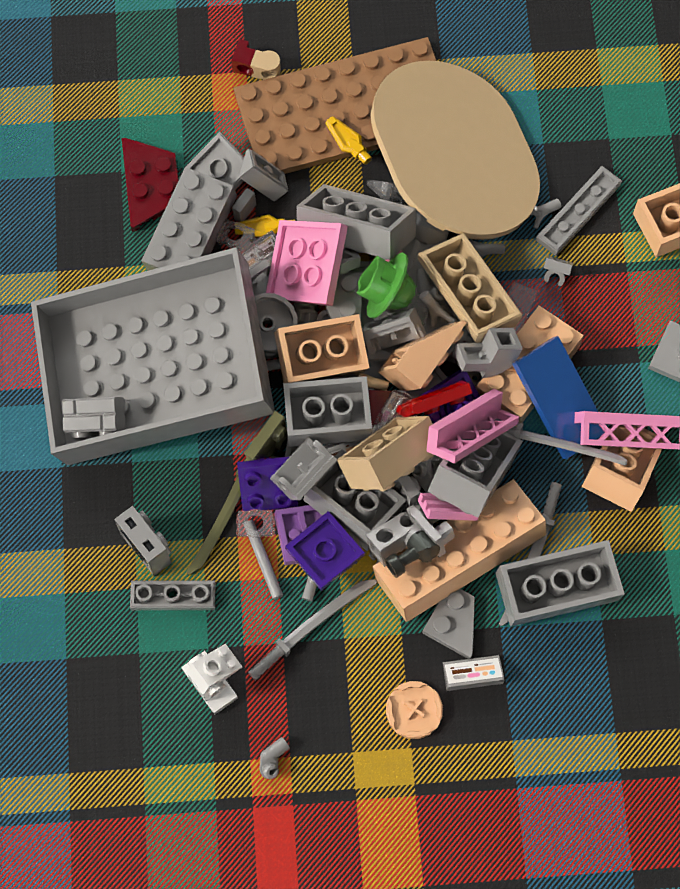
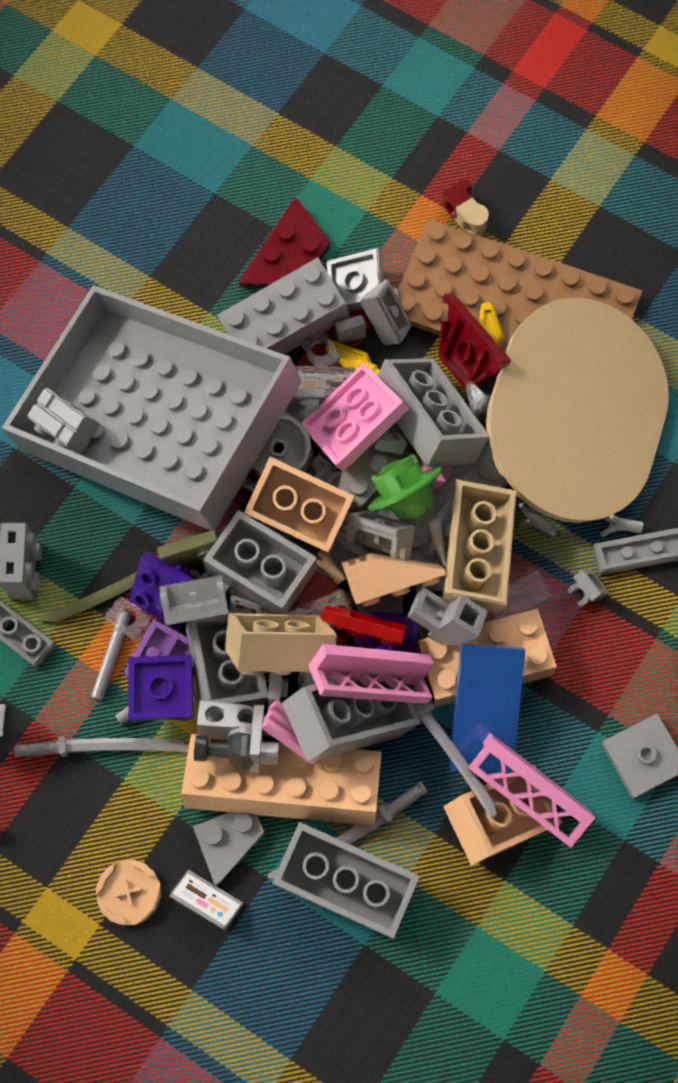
camera: 40 degrees right, 0 degrees up
(344, 158) = (468, 347): none -> dark red wing

